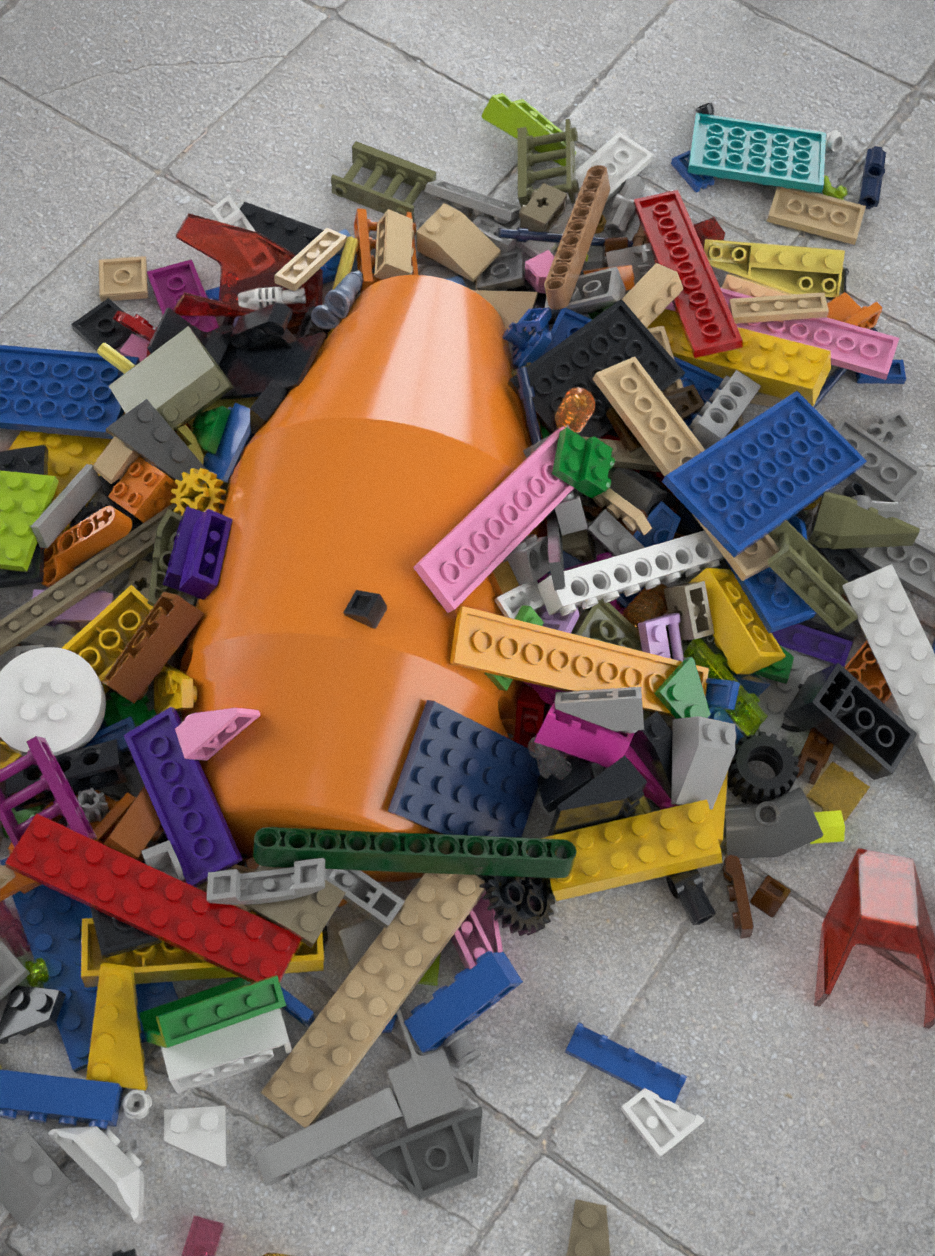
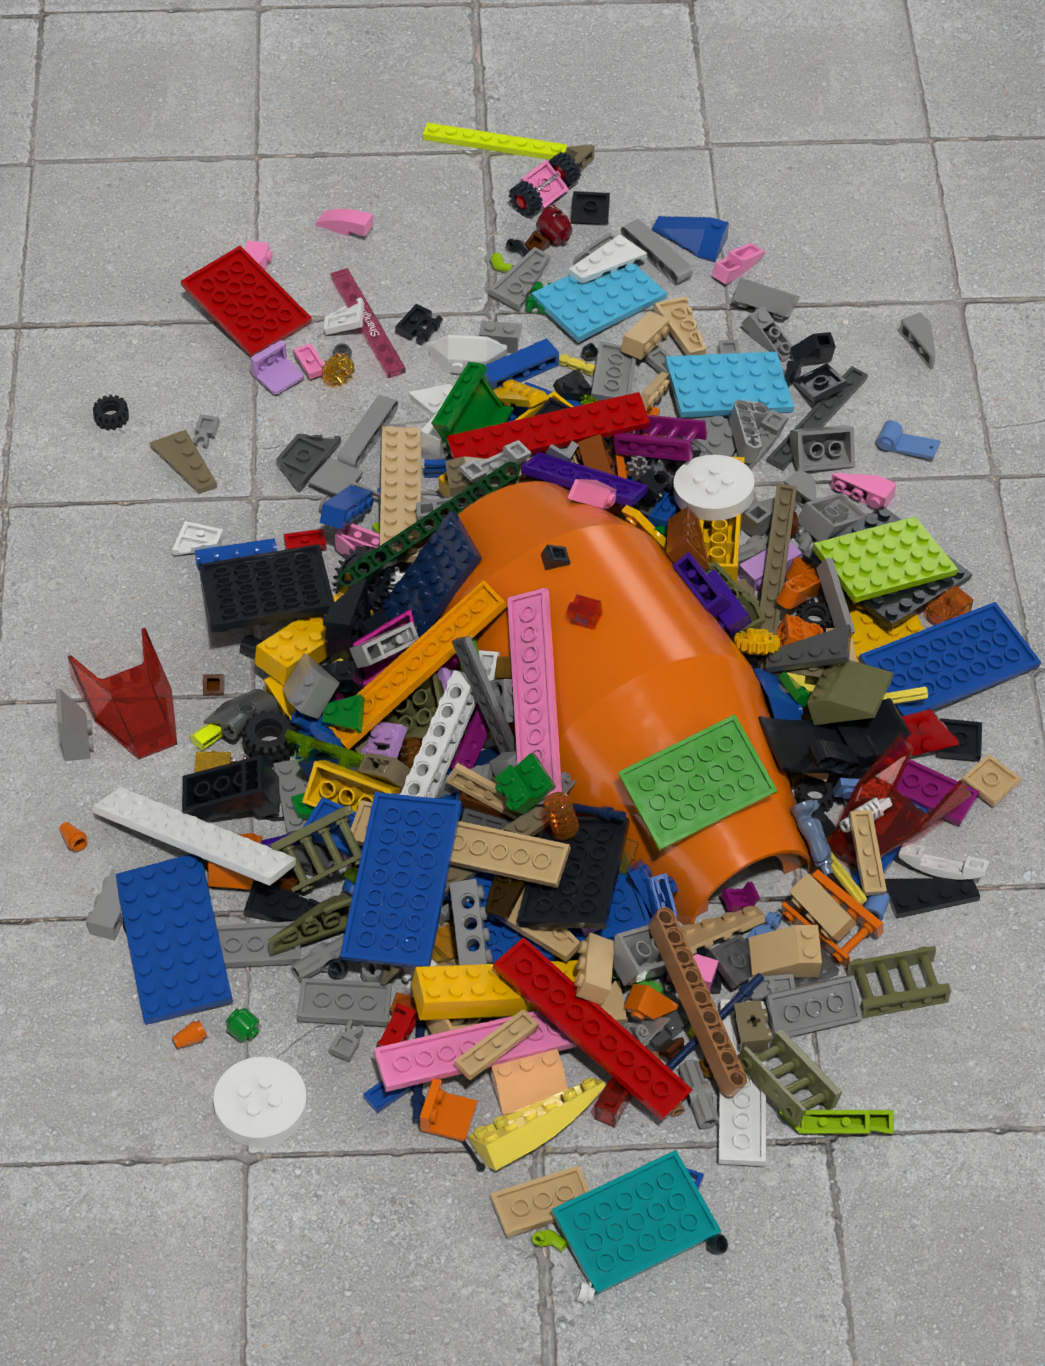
camera: 145 degrees right, 10 degrees down
(266, 405) = (766, 697): black slope -> none
(400, 514) = (585, 611): none -> clear red brick
(433, 331) = (697, 782): none -> bright green plate
(533, 1017) = (305, 538): none -> red plate
(641, 954) = (266, 588): none -> black plate
(738, 894) = (232, 666): reddish brown hinge -> none
(841, 401) = (399, 1026): none -> red hinge
(872, 177) = (527, 1283): dark blue piece -> none

